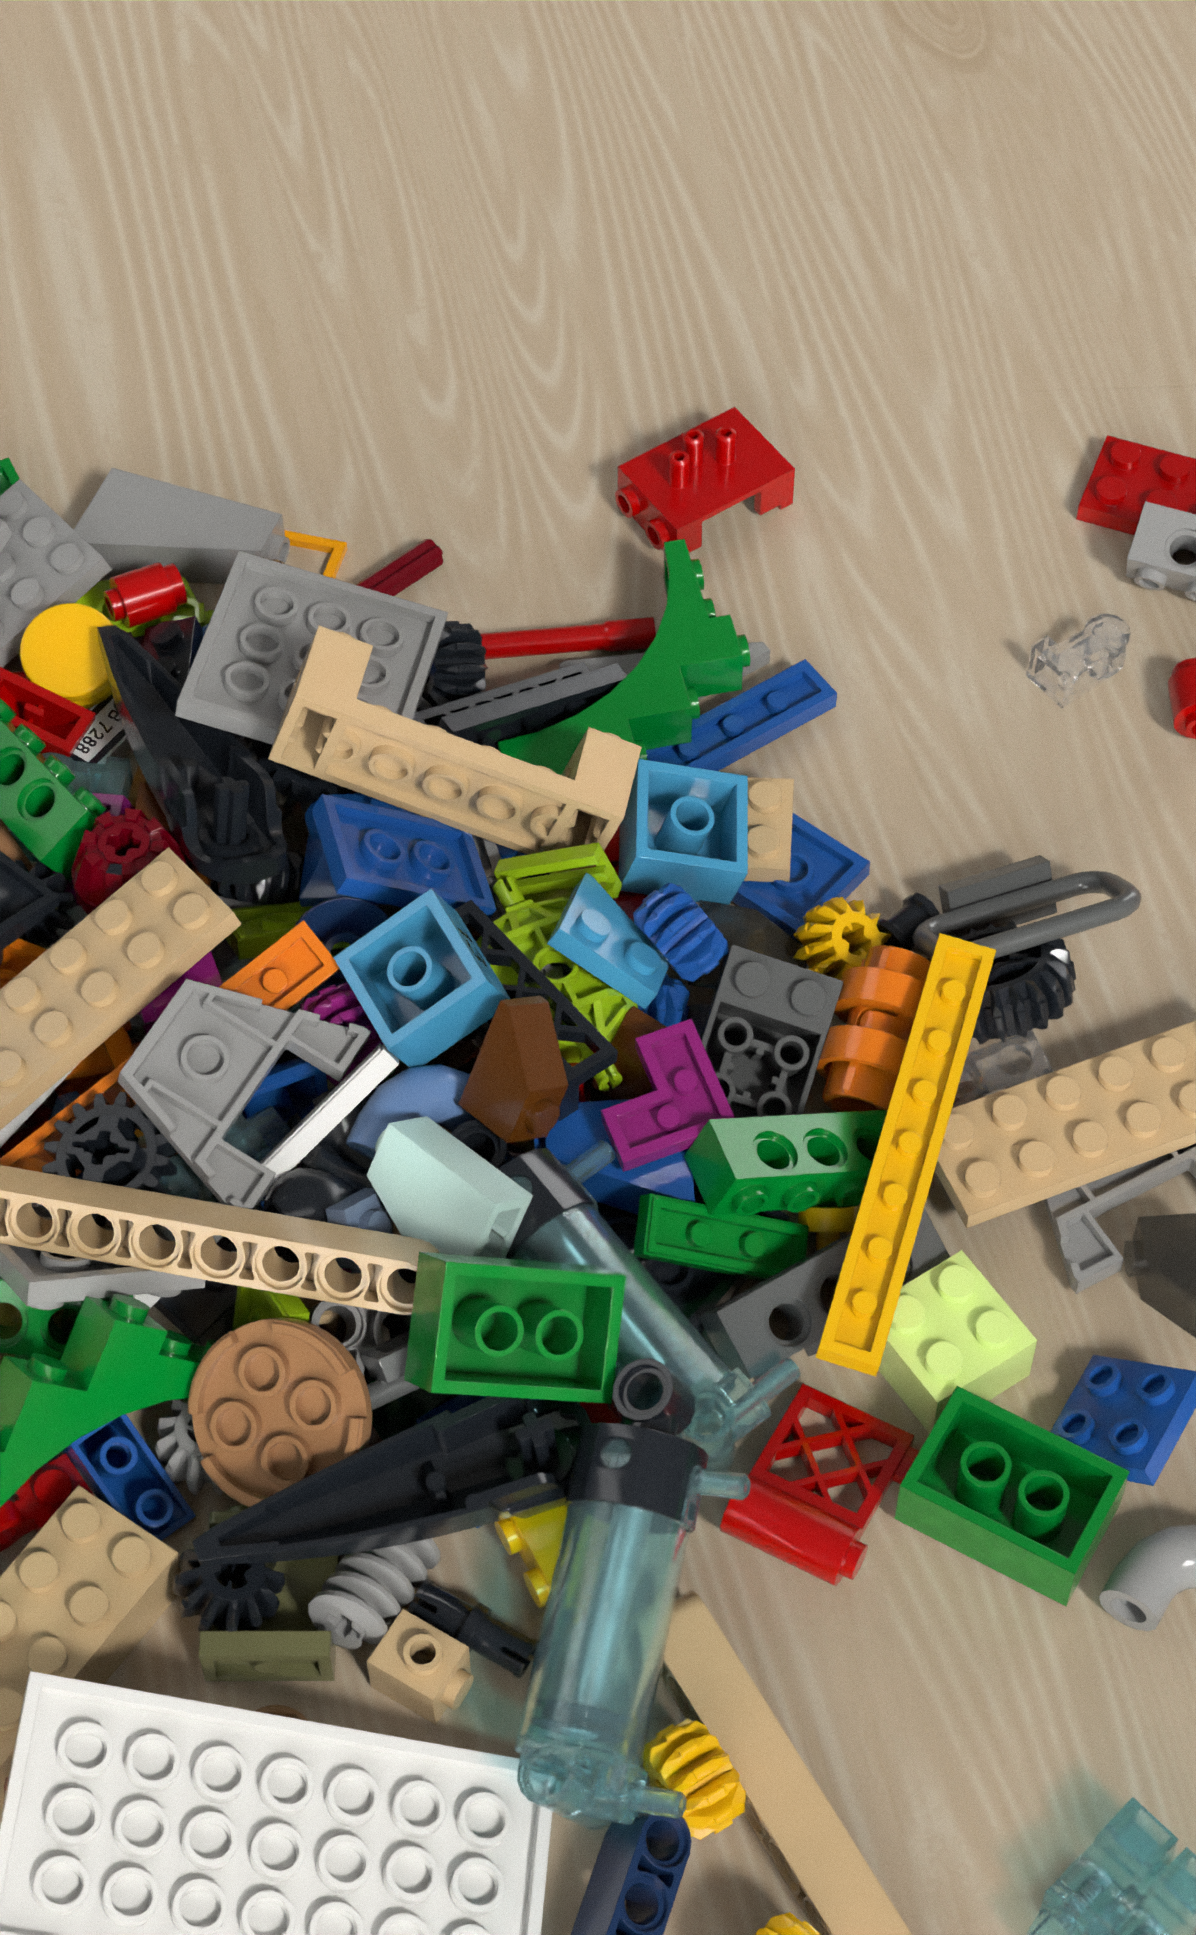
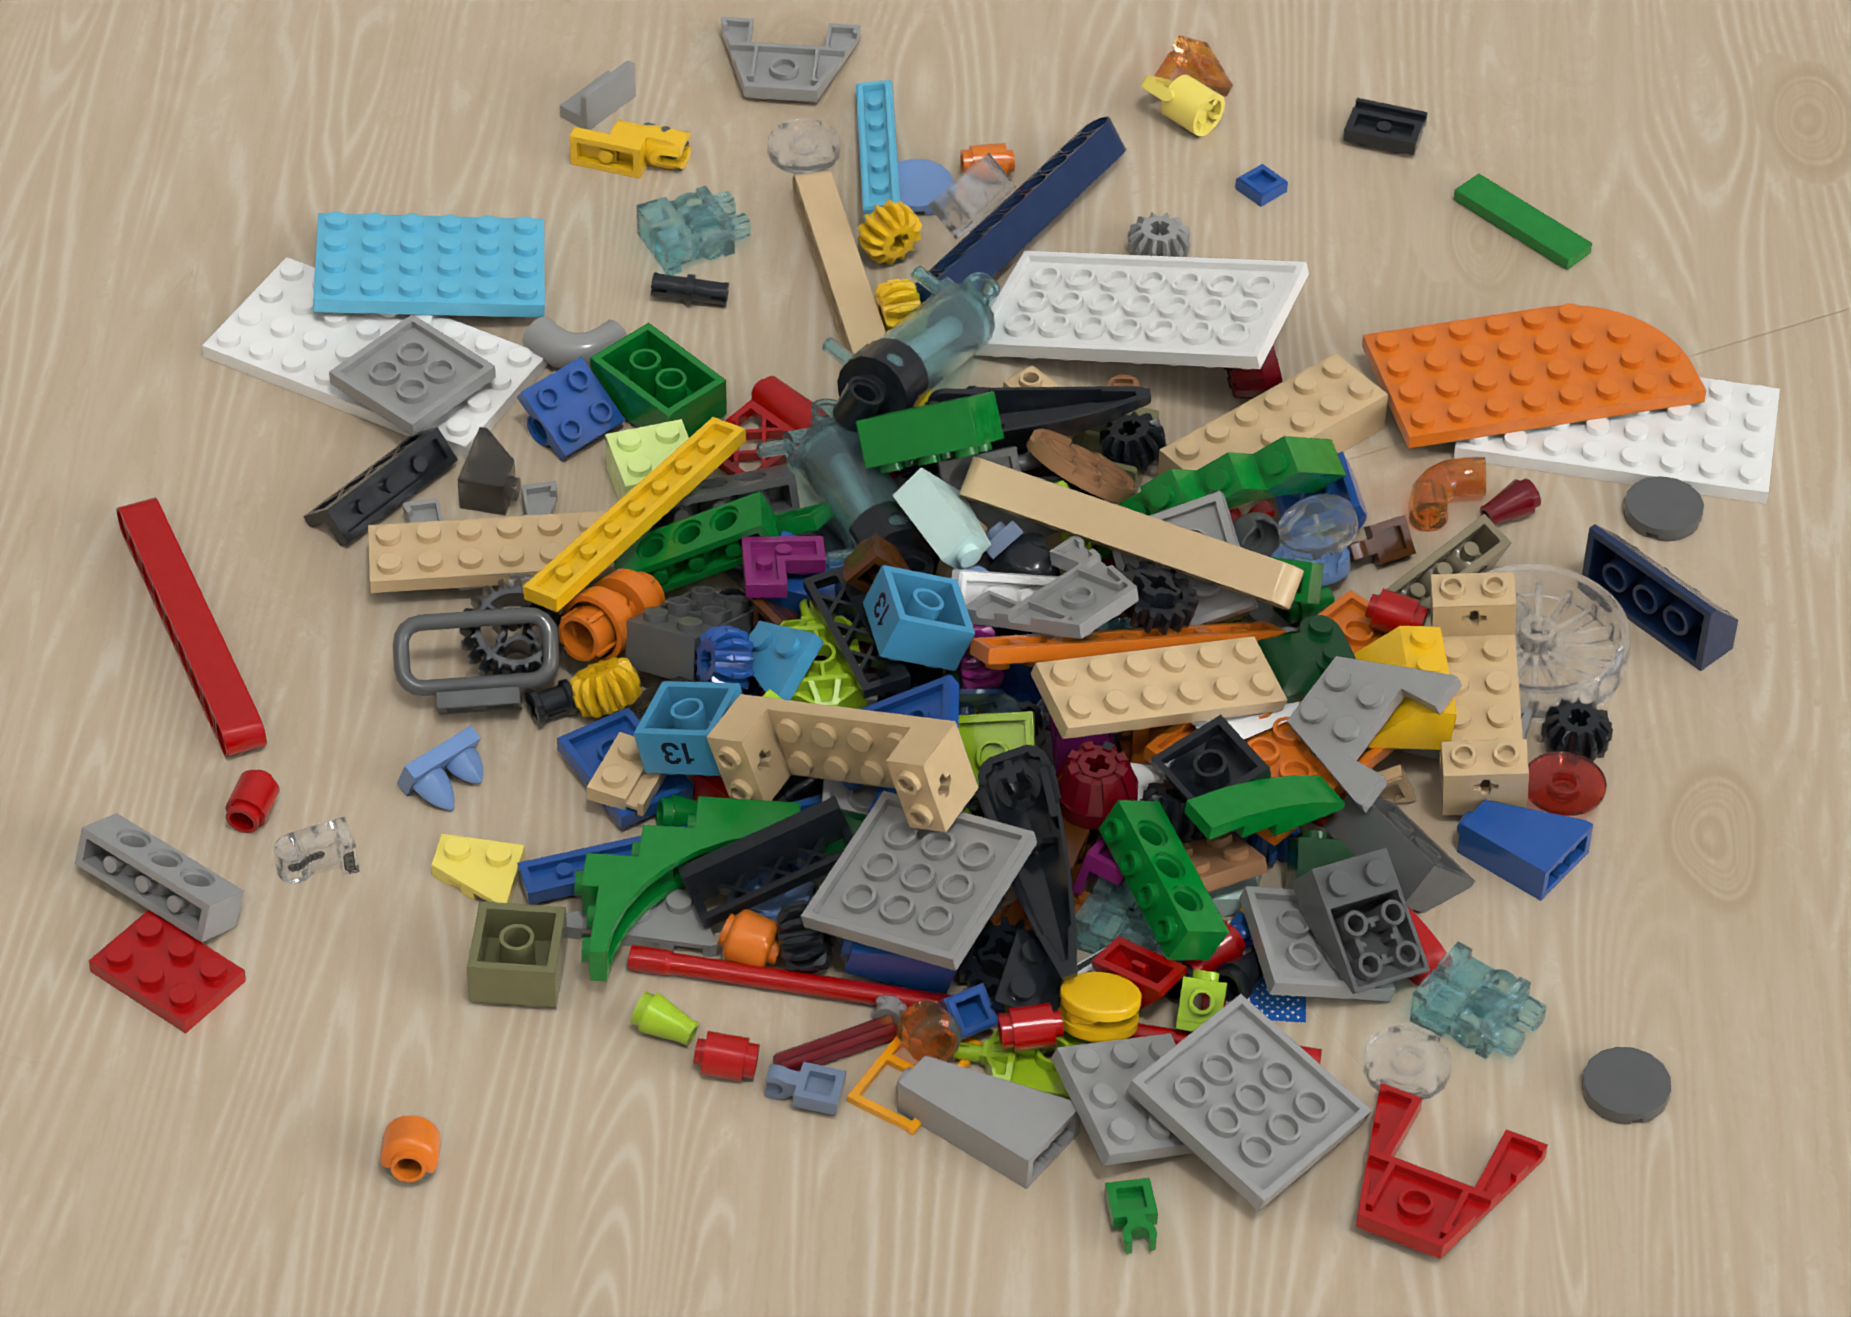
camera: 165 degrees left, 10 degrees down
(384, 526) = (812, 1088): none -> sand blue plate
(493, 536) = (726, 1056): none -> red brick
(517, 657) = (750, 939): none -> orange head
(582, 562) = (663, 1019): none -> lime cone
(700, 476) = (537, 1054): red piece -> none
(777, 569) = (517, 954): none -> olive brick
(787, 355) = (410, 1148): none -> orange head
(884, 700) = (478, 866): none -> light yellow wing
(1003, 799) = (428, 772): none -> medium blue tile
(1066, 1765) = (690, 289): none -> black pin

